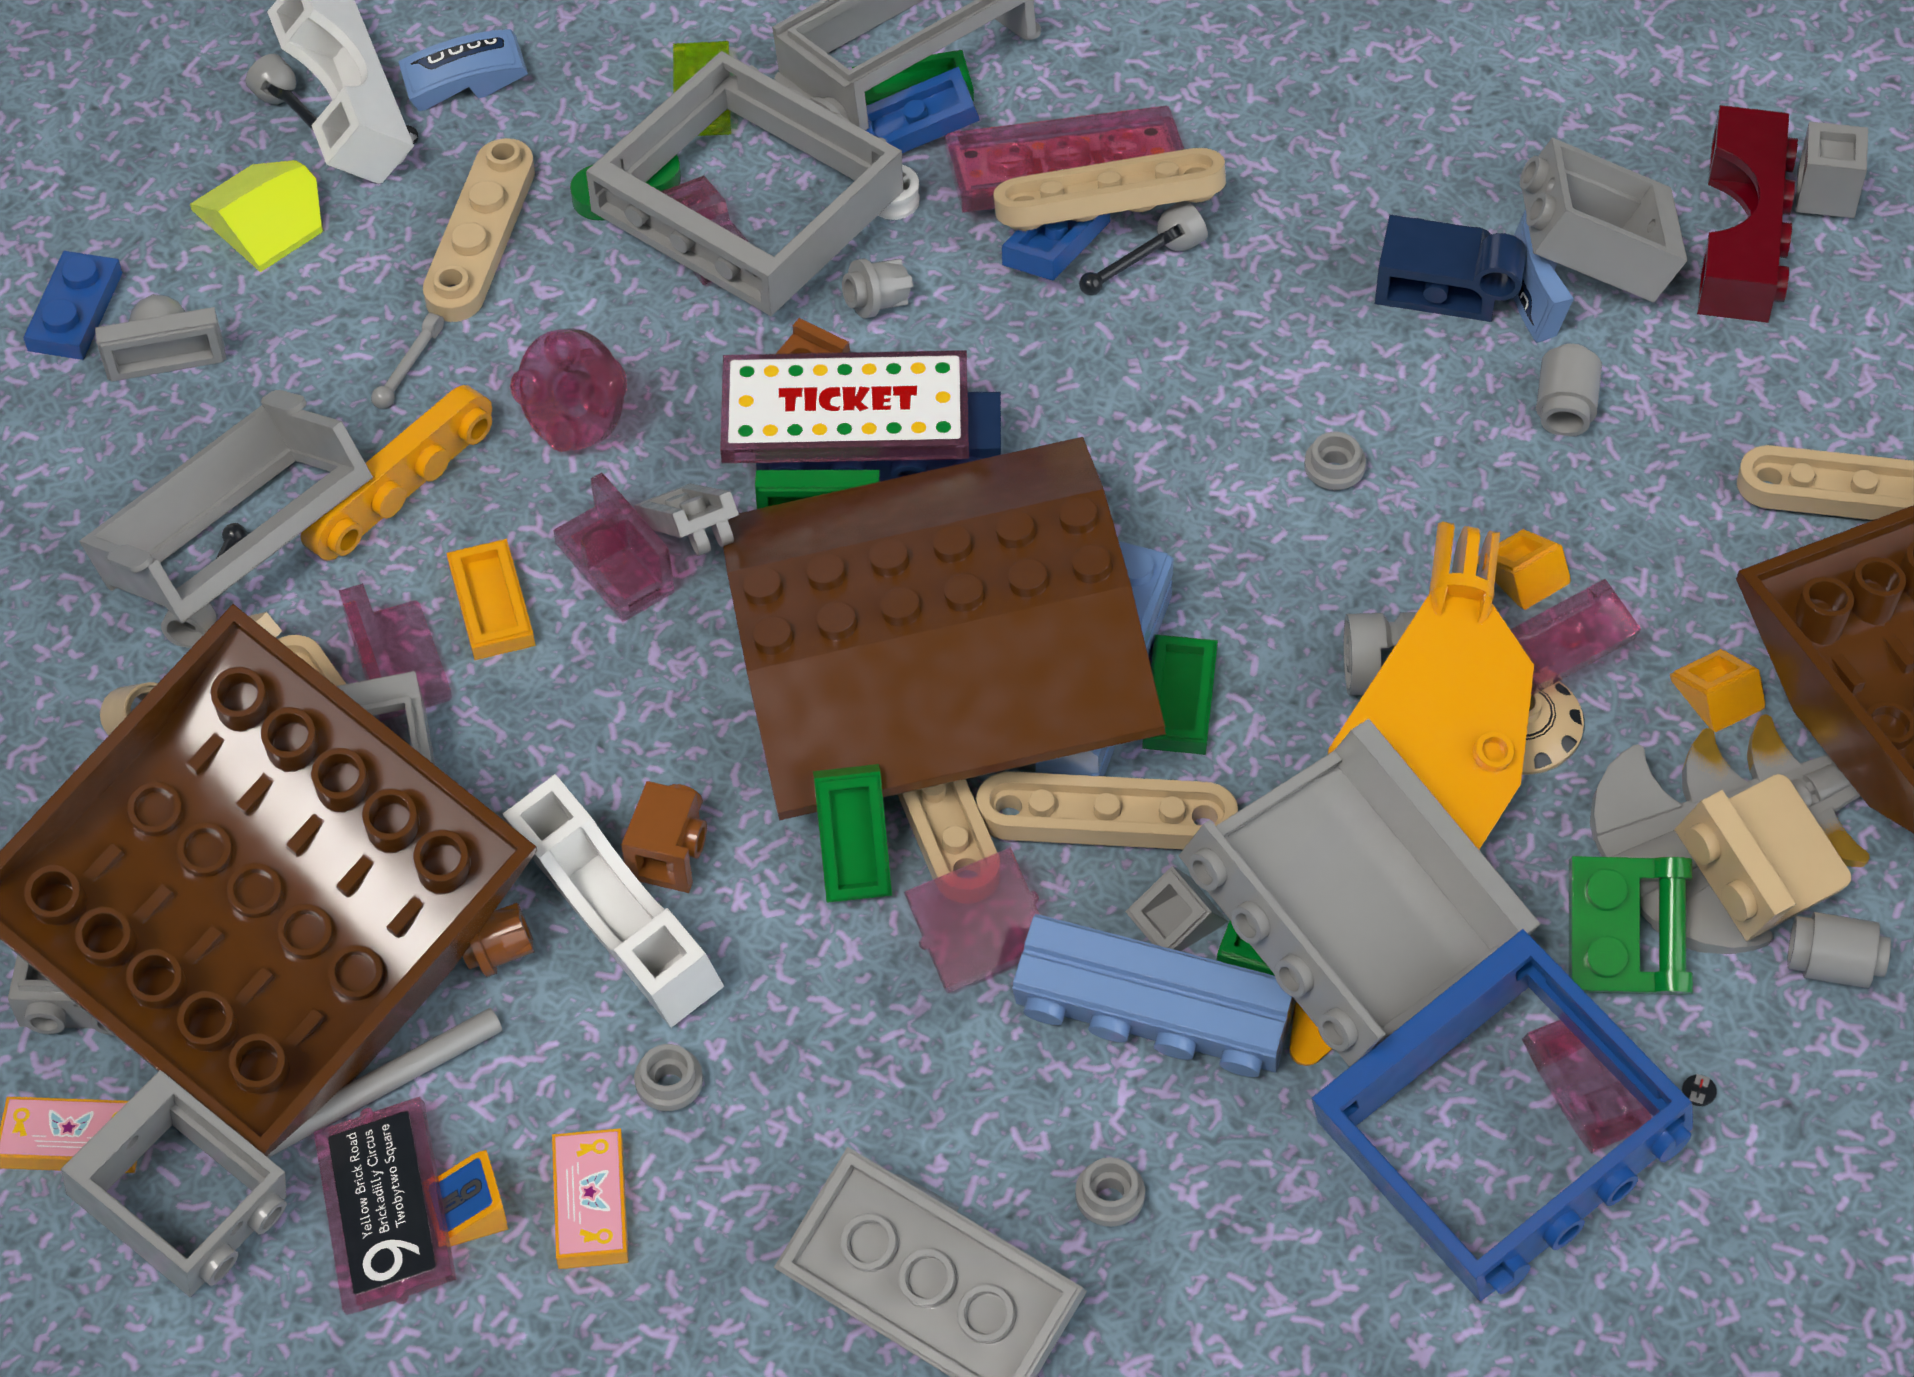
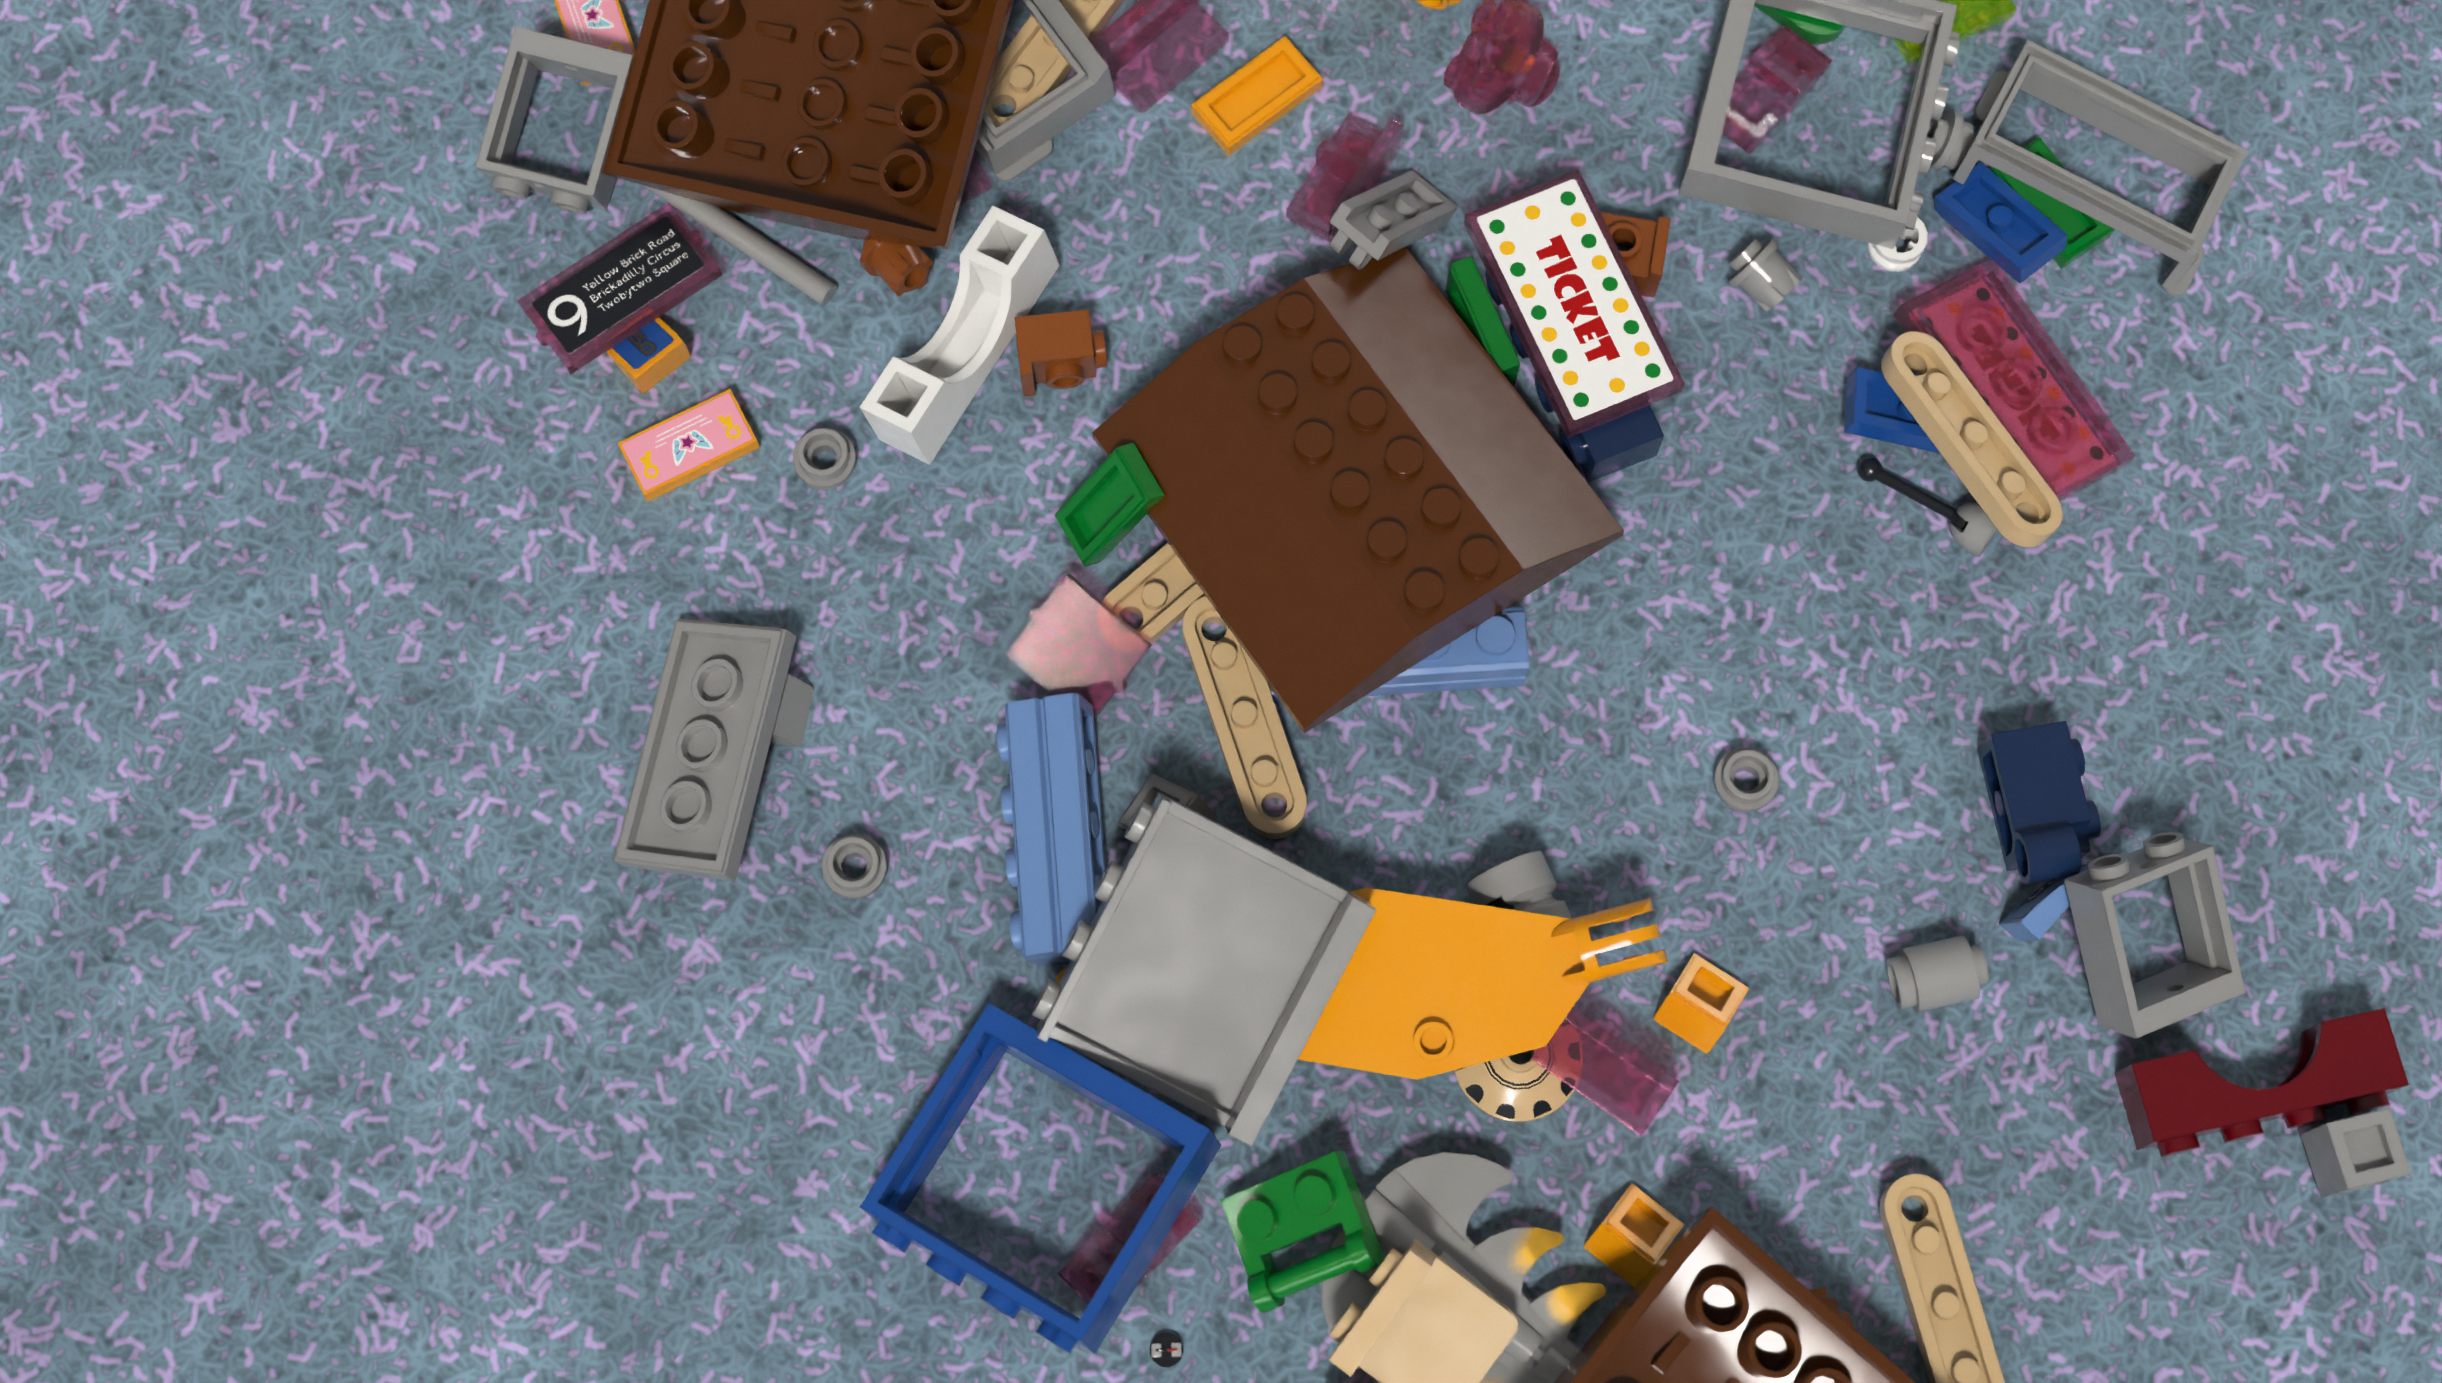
camera: 65 degrees right, 20 degrees up
(1184, 686) = (1410, 734): green tile -> none

